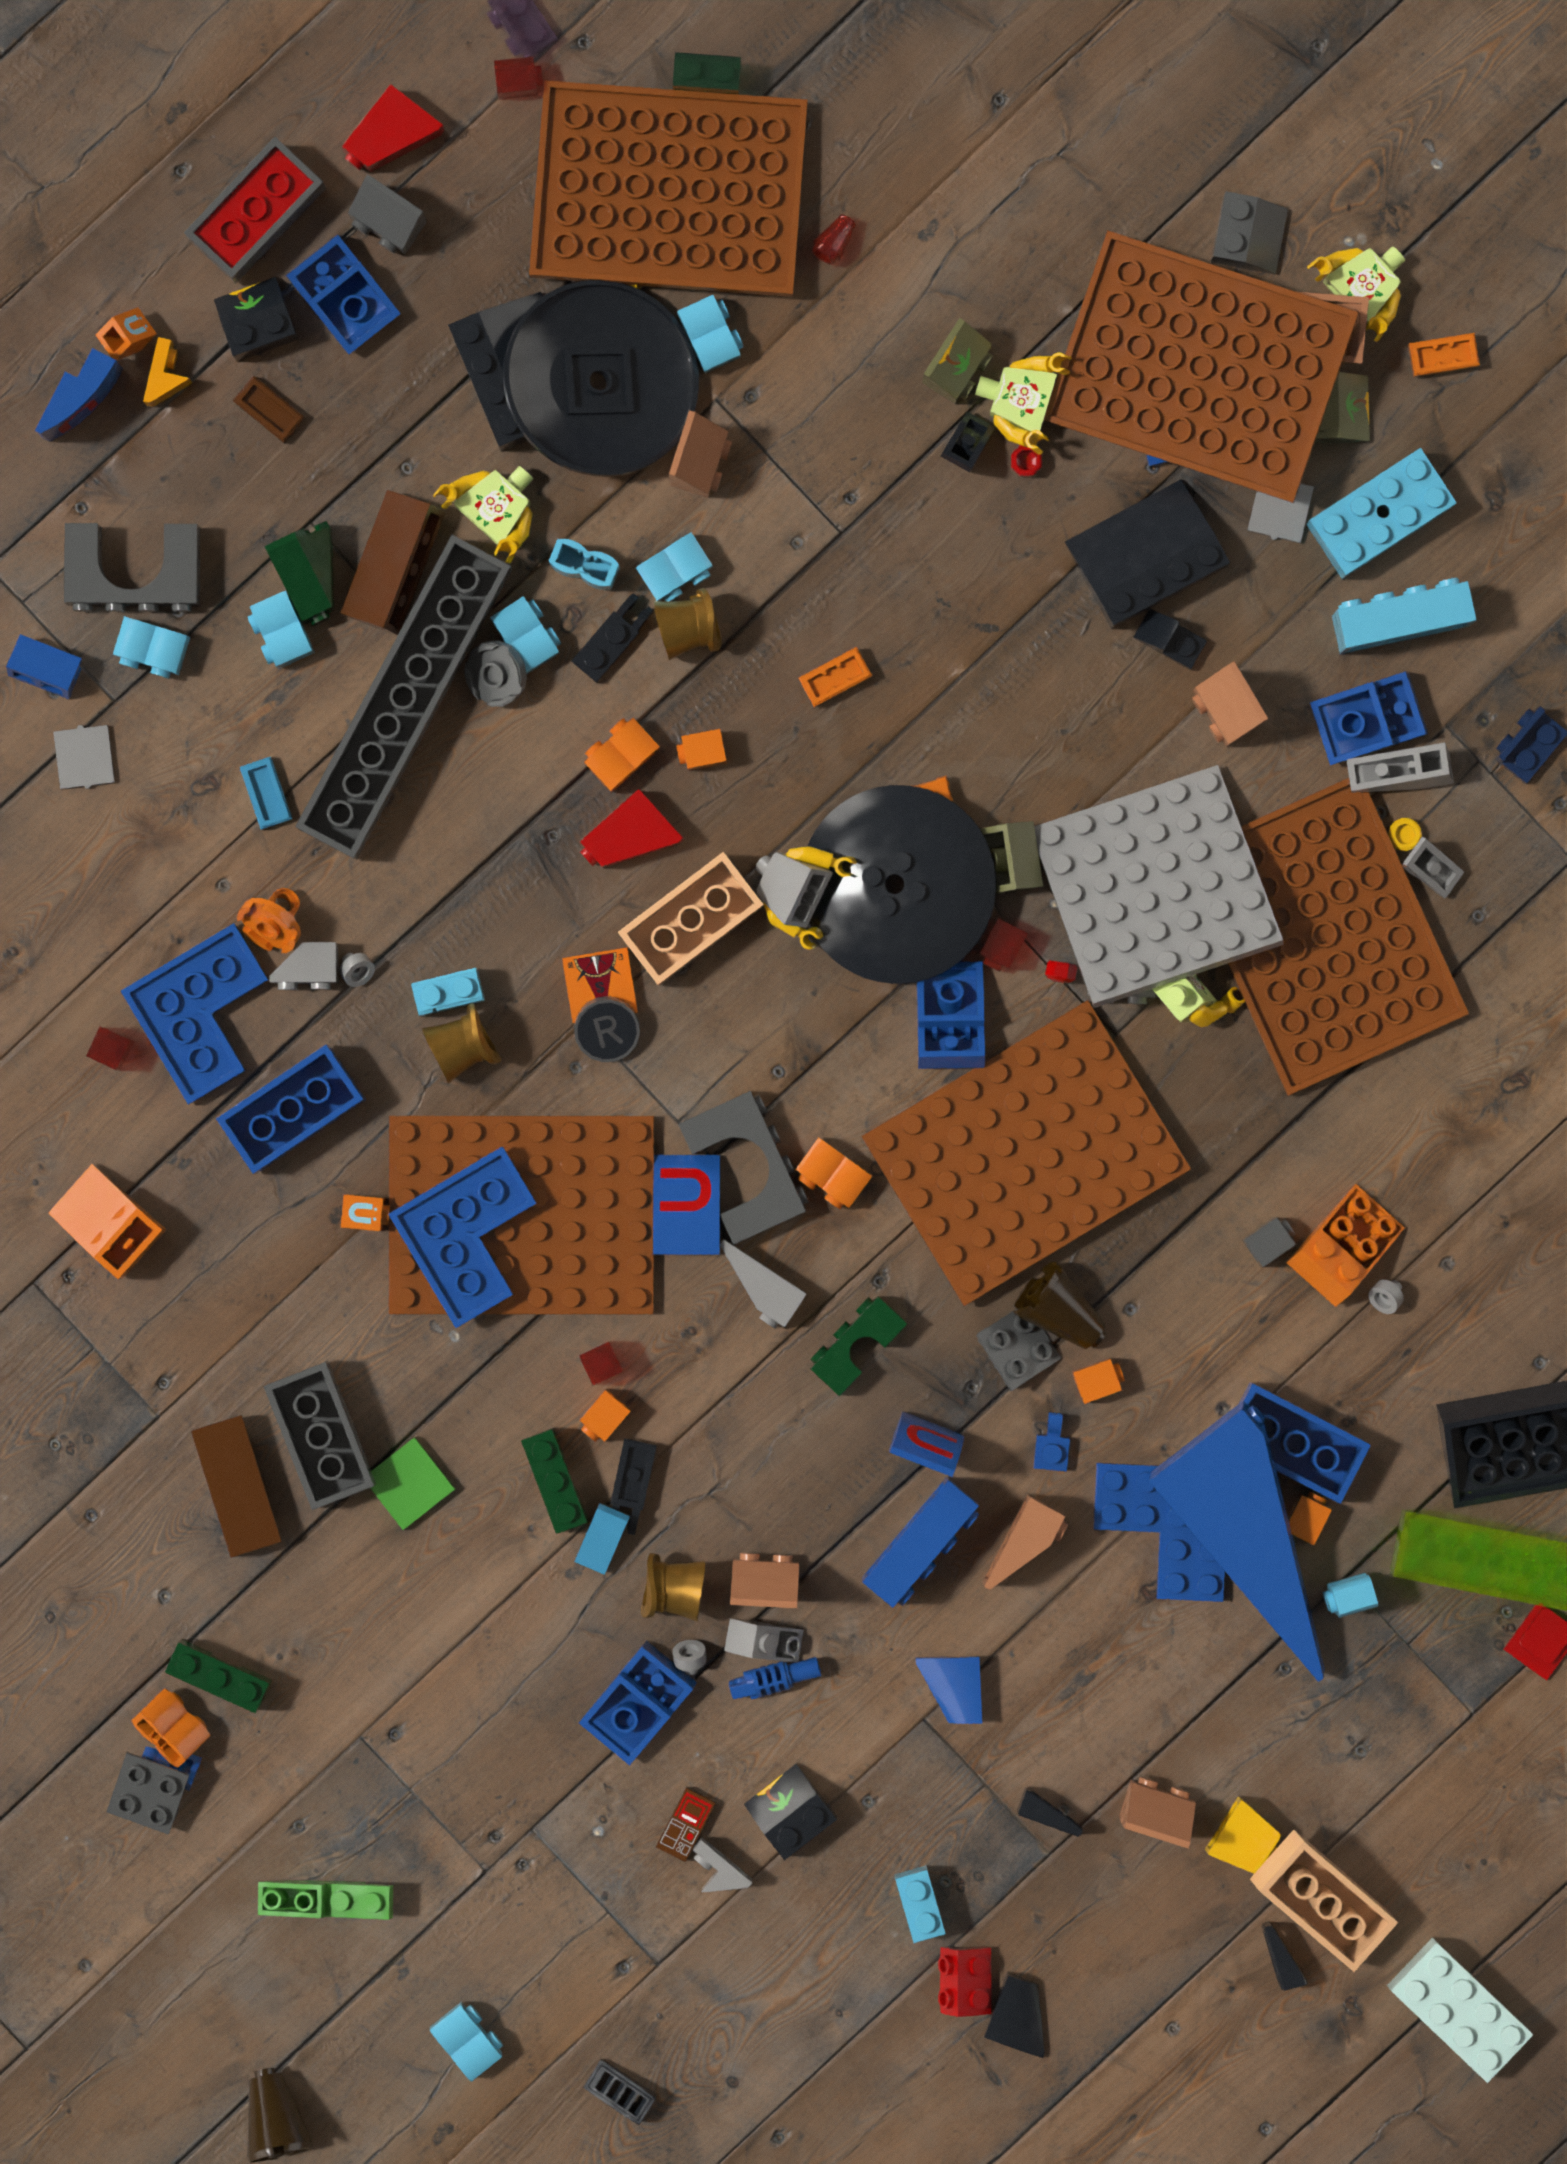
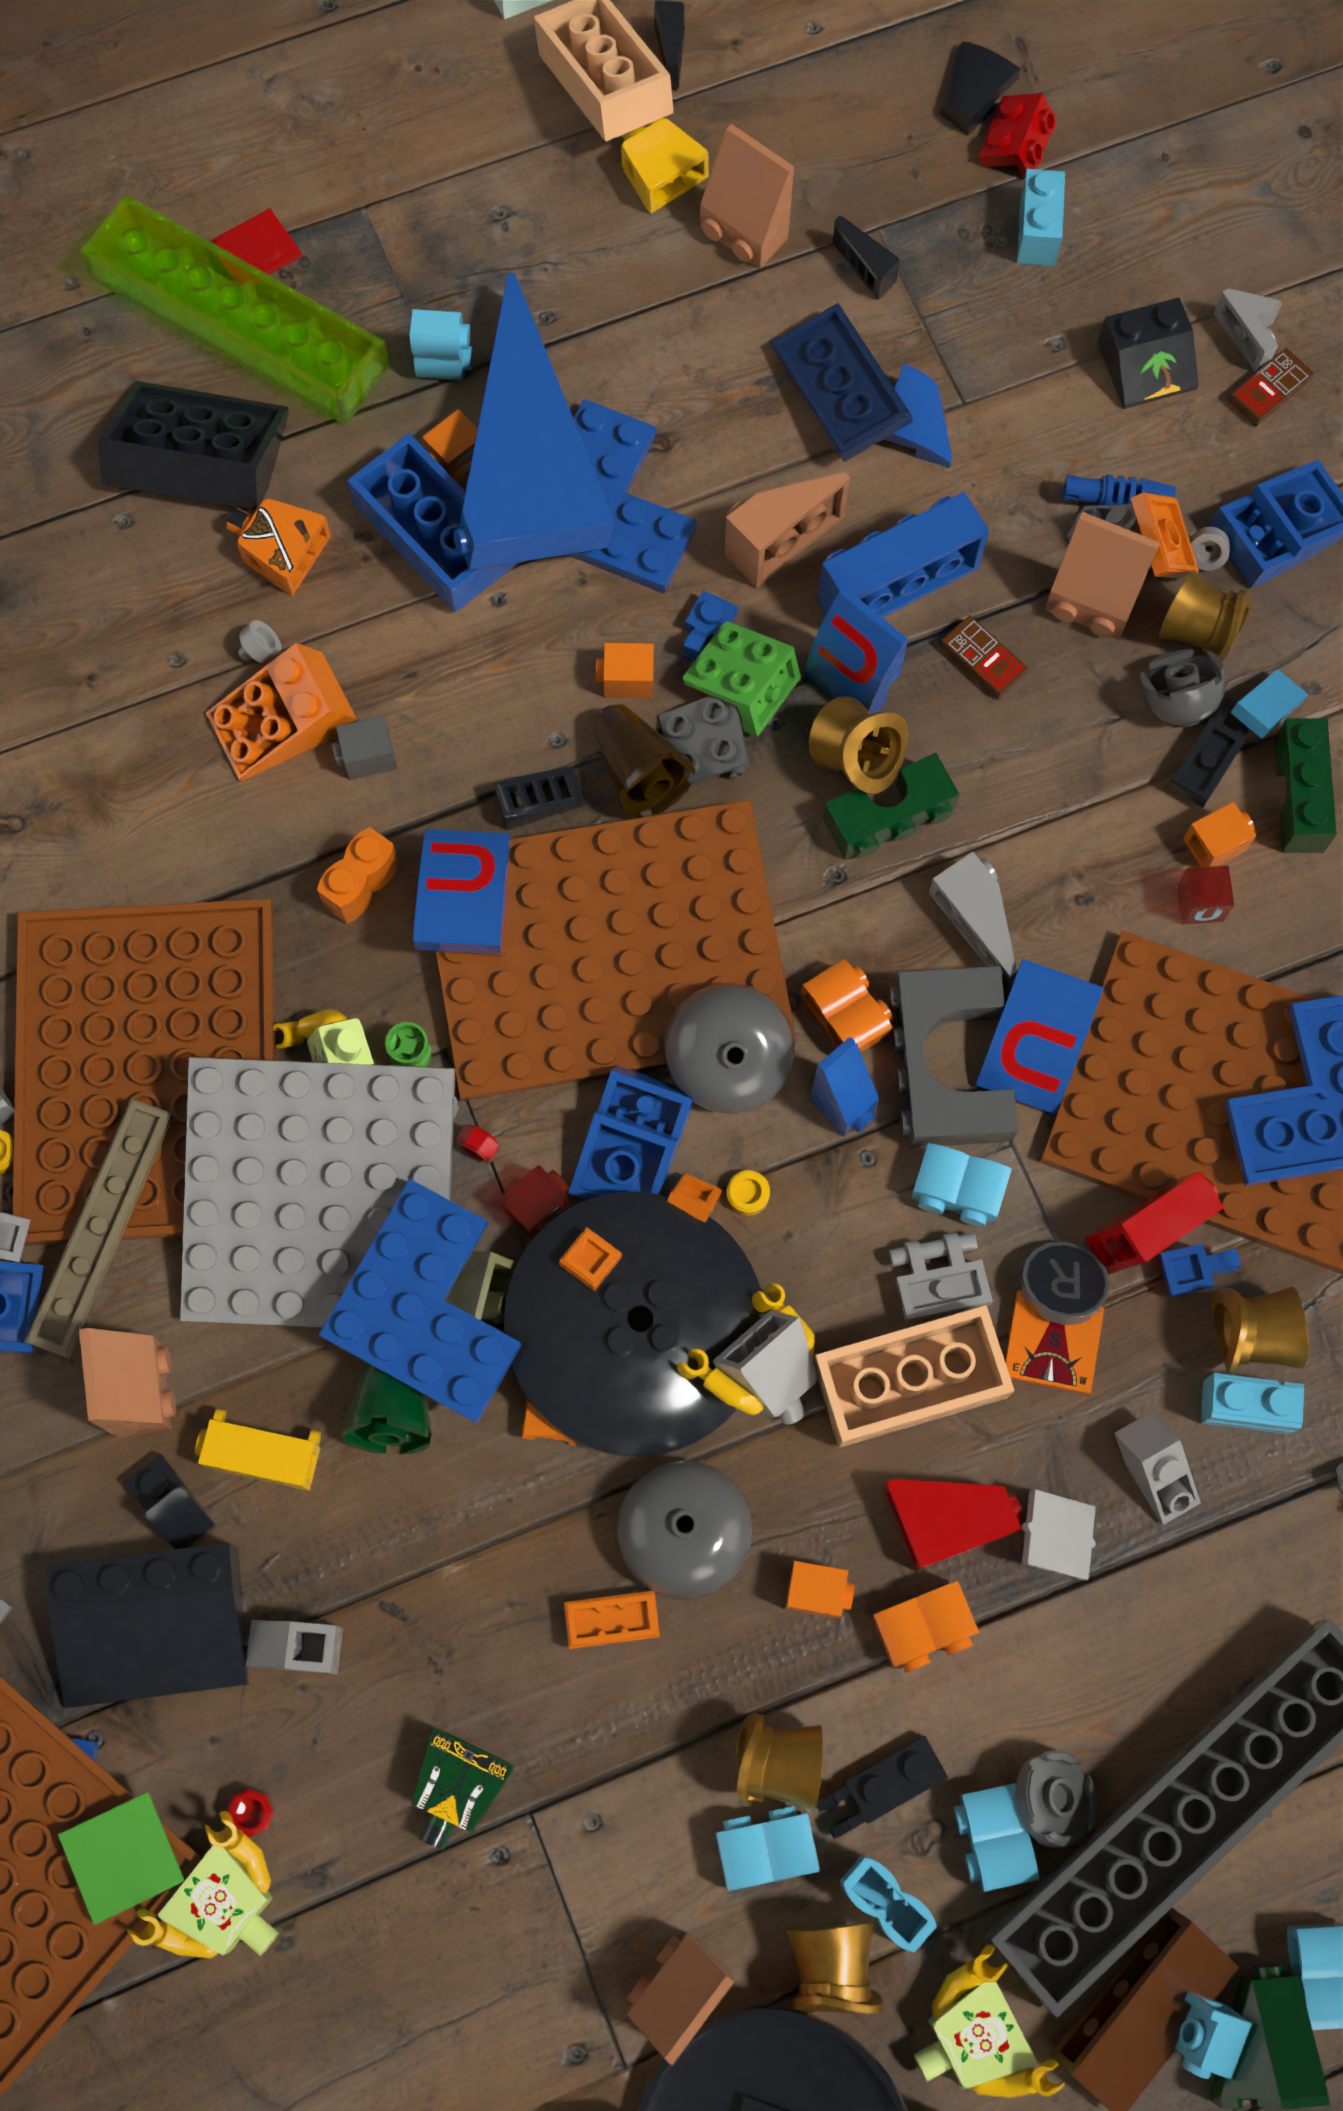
camera: 165 degrees left, 15 degrees down
(347, 561) = (1211, 2037): none -> medium azure brick
(498, 923) = (1158, 1467): none -> light grey slope
(520, 1073) = (1191, 1271): none -> blue plate
(551, 849) = (1058, 1535): none -> light grey piece
(557, 1093) = (1155, 1223): none -> red slope
(604, 510) = (834, 1969): none -> pearl gold hat
(672, 1524) = (1184, 686): none -> dark grey cylinder
(689, 993) = (942, 1289): none -> light grey plate
(704, 1072) = (961, 1185): none -> medium azure brick
(727, 1639) = (1162, 521): none -> orange tile
(802, 779) = (677, 1562): none -> dark grey cylinder
(809, 1103) = (845, 1089): none -> blue slope
(831, 1500) = (984, 657): none -> reddish brown tile
(854, 1011) = (748, 1192): none -> yellow tile
(891, 991) = (695, 1196): none -> orange tile
(895, 530) = (457, 1786): none -> torso
(899, 1378) = (859, 743): none -> pearl gold hat
(906, 1106) = (713, 1023): none -> dark grey cylinder
(944, 910) = (590, 1259): none -> orange tile
(957, 362) = (281, 1988): olive slope -> none
(968, 442) = (314, 1868): black slope -> none
(1008, 1409) = (746, 672): none -> bright green bracket
(1025, 1690) = (841, 382): none -> dark blue tile
(1042, 576) = (294, 1646): none -> light grey slope
(1047, 768) = (386, 1415): none -> dark green cone
(1061, 819) = (399, 1313): none -> blue plate
(1095, 400) = (121, 1857): none -> bright green tile
(1123, 694) = (258, 1453): none -> yellow brick
(1143, 1018) = (405, 1039): none -> bright green wheel
(1145, 1147) = (462, 891): none -> blue slope
(1147, 1239) = (535, 782): none -> black slope
(1233, 1129) = (350, 882): none -> orange brick
(1300, 806) = (99, 1229): none -> dark tan tile
(1408, 1385) = (280, 541): none -> orange torso

